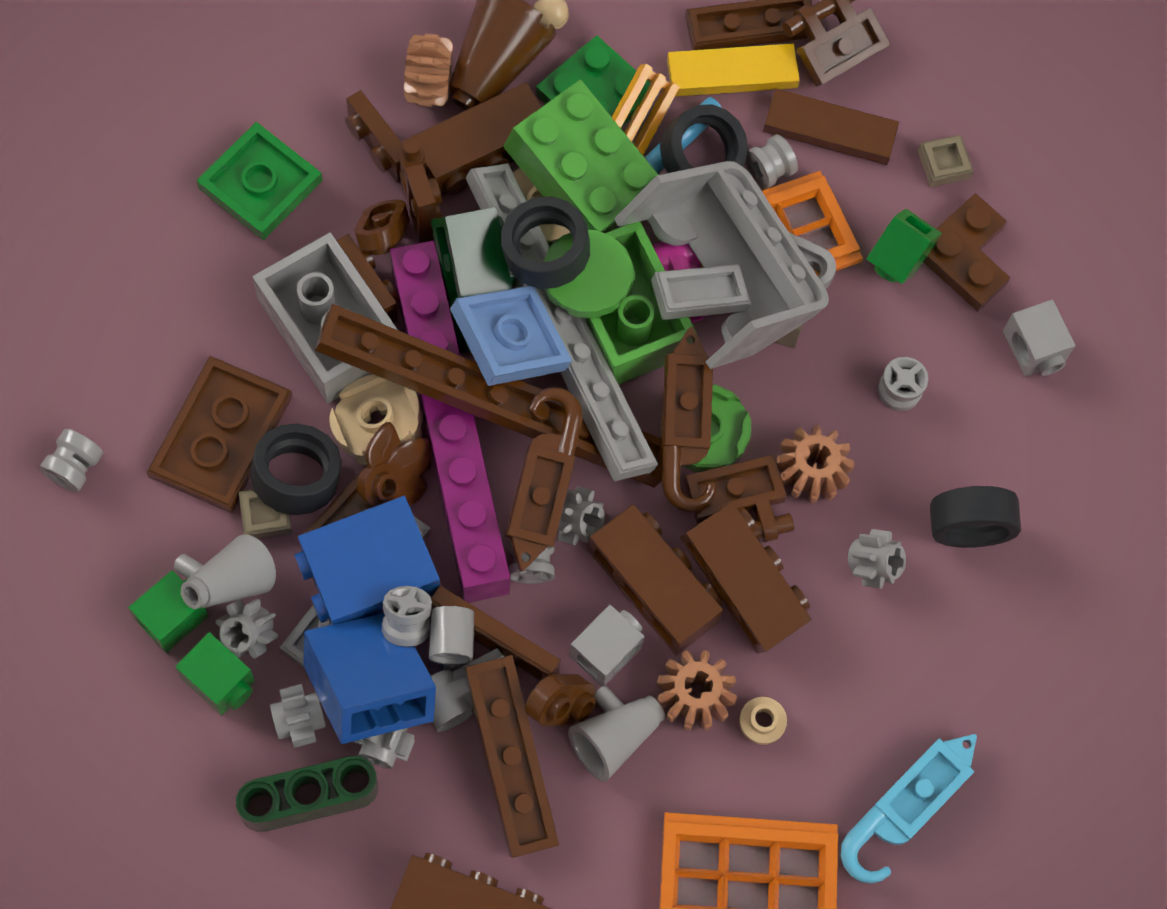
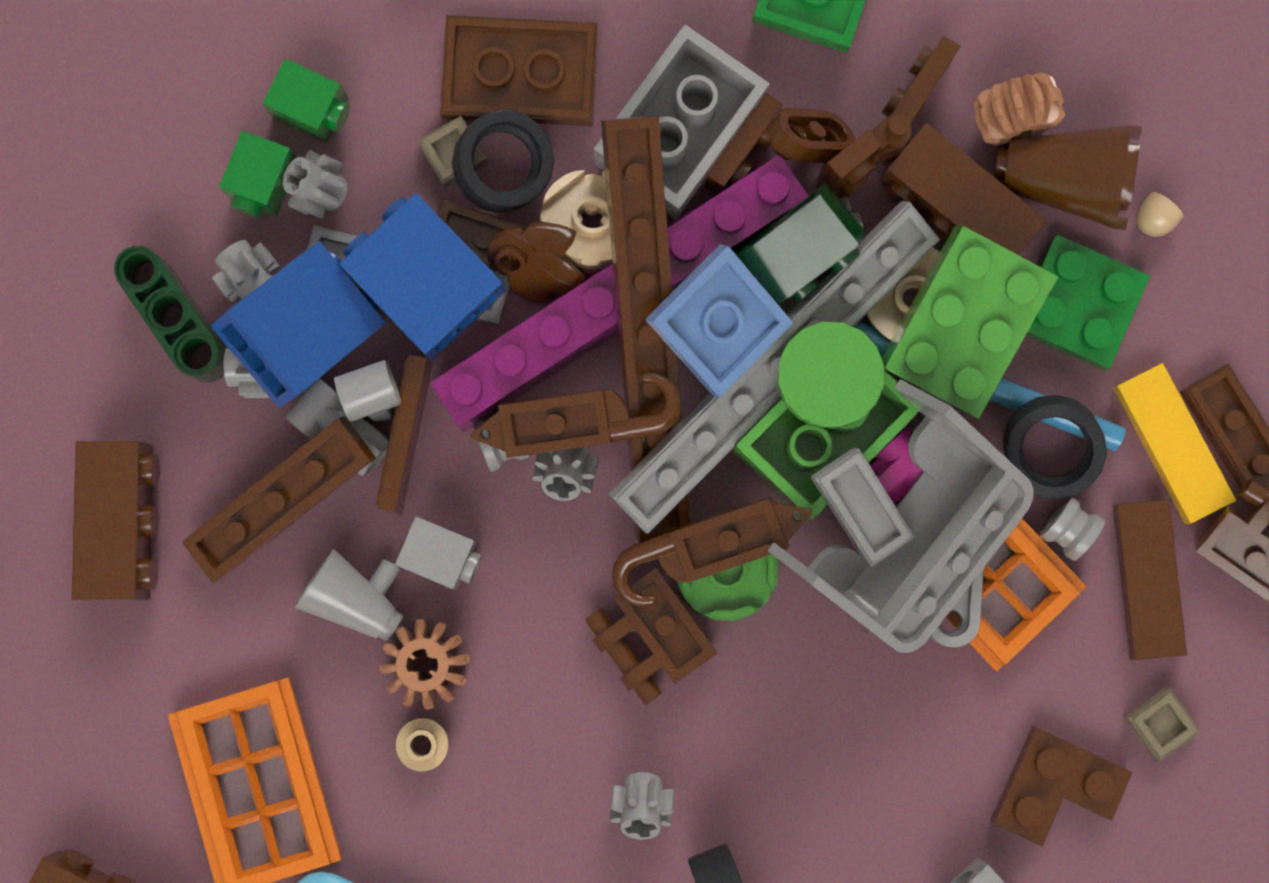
camera: 75 degrees right, 15 degrees up
(234, 573) = (357, 143): light grey piece -> none
(406, 616) = (380, 327): light grey wheel -> none
(540, 212) = (852, 278): black tyre -> none
(561, 700) = (353, 528): reddish brown plate -> none
(656, 578) = (530, 578): reddish brown brick -> none
(658, 82) = (1068, 378): light orange tile -> none
(747, 577) = (562, 673): reddish brown brick -> none
(821, 449) = (725, 719): nougat gear -> none
(903, 247) = (1024, 713): green brick -> none
(904, 373) = (870, 771): light grey wheel -> none

